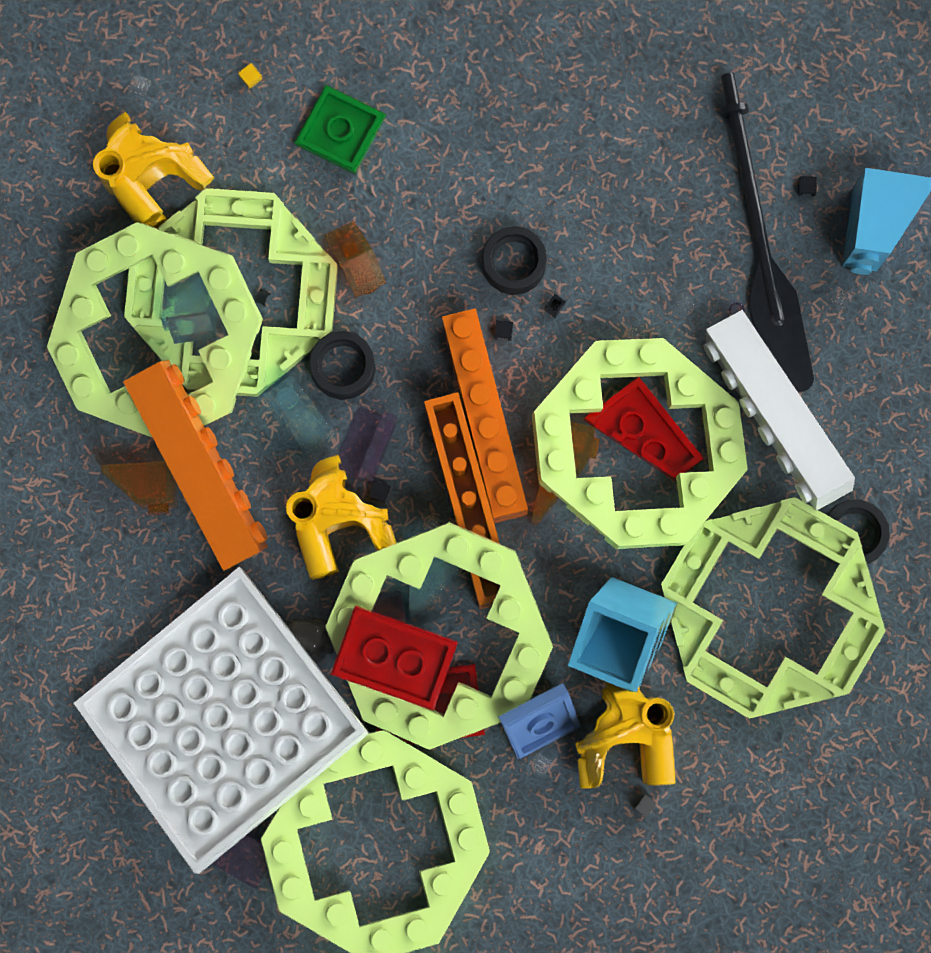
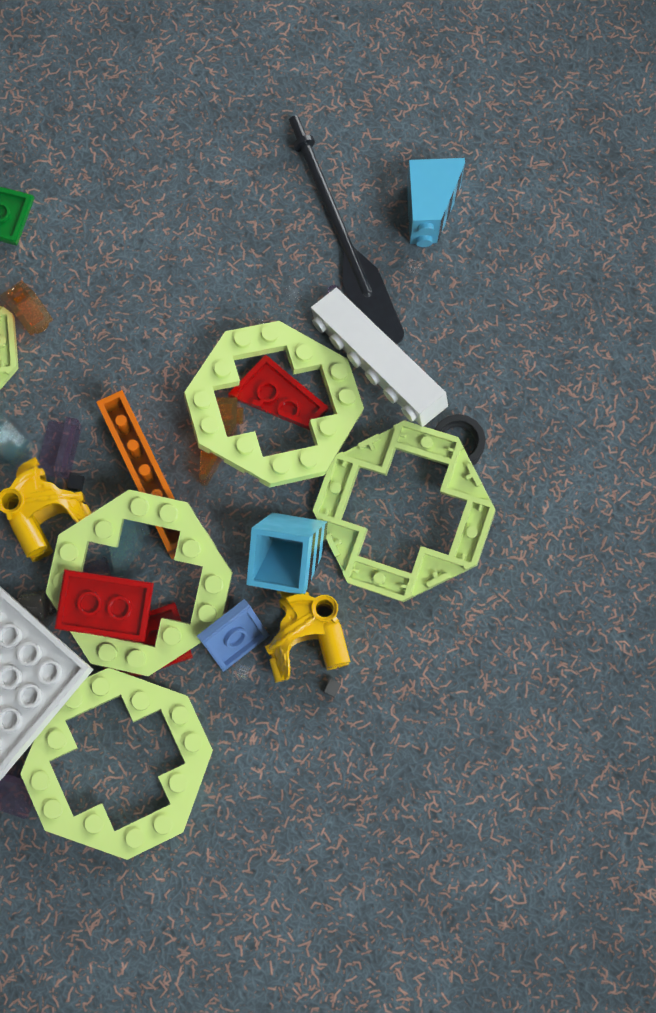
camera: 10 degrees left, 5 degrees down
(334, 340) = (39, 408): black tyre -> none
(484, 415) = (149, 407): orange brick -> none
(503, 329) = (153, 339): black piece -> none
(521, 235) = (152, 305): black tyre -> none
(555, 305) = (190, 314): black piece -> none
(807, 185) = (370, 188): black piece -> none

